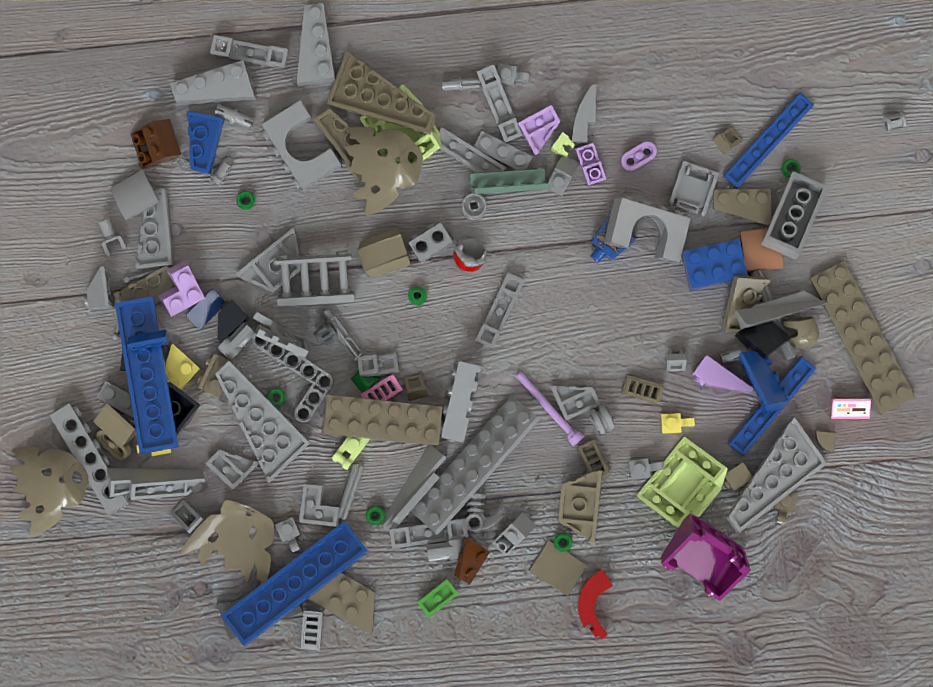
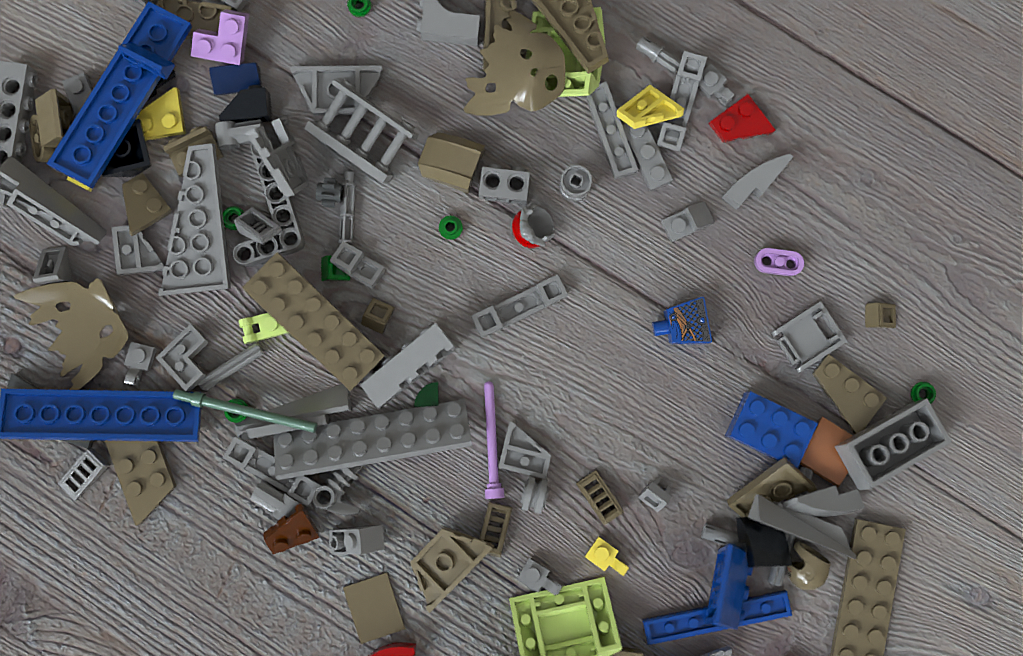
camera: 40 degrees right, 0 degrees up
(212, 433) = (143, 204): none -> dark tan wing
(288, 386) = (256, 226): none -> light grey slope
(349, 525) = (199, 400): none -> sand green bar
(378, 386) = (359, 296): bright pink slope -> none
(437, 598) = (230, 543): bright green plate -> none
(482, 123) = (649, 108): none -> light yellow wing
(487, 411) = (428, 395): none -> dark green tile
(507, 181) = (629, 183): sand green fence -> none
(539, 127) = (702, 157): lavender wing -> none
(546, 85) = (741, 121): none -> red wing
(563, 140) = (713, 187): yellowish green tile -> none
(567, 537) = (398, 594): green plate -> none
(590, 163) = (725, 232): lavender slope -> none
(672, 227) = (758, 355): light grey arch -> none
(715, 375) = (684, 541): lavender slope -> none
(768, 140) = (922, 348): blue tile -> none
(782, 283) = (826, 503): none -> light grey slope

